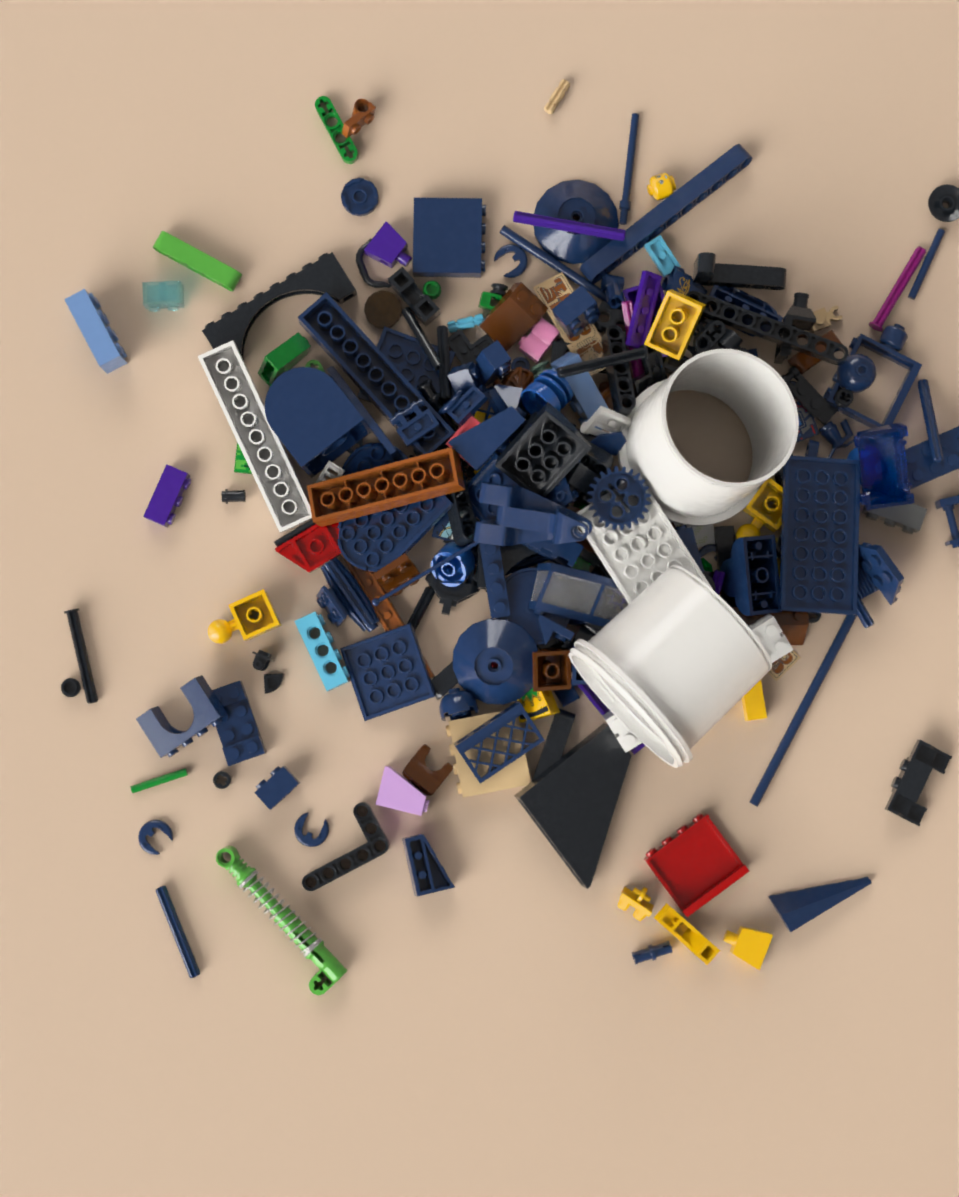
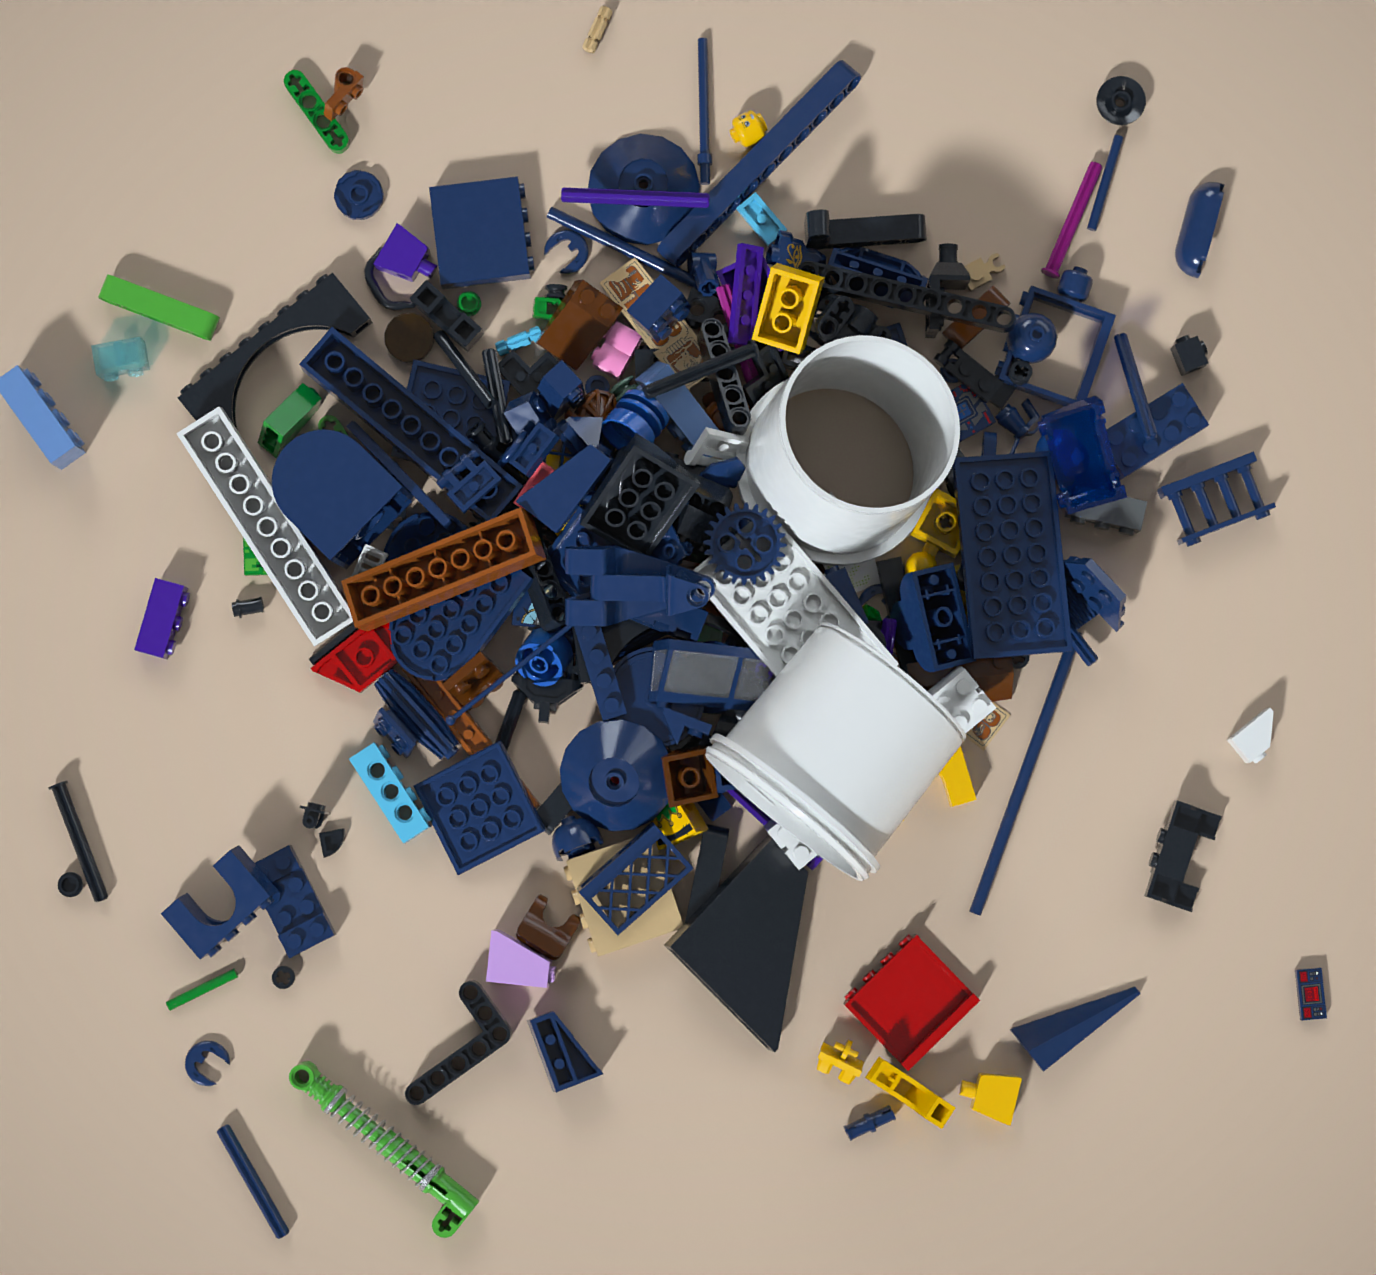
camera: 10 degrees left, 0 degrees up
(242, 610) = (256, 784): yellow brick -> none
(277, 787) = (356, 976): dark blue brick -> none
(307, 839) = (405, 1040): dark blue head -> none

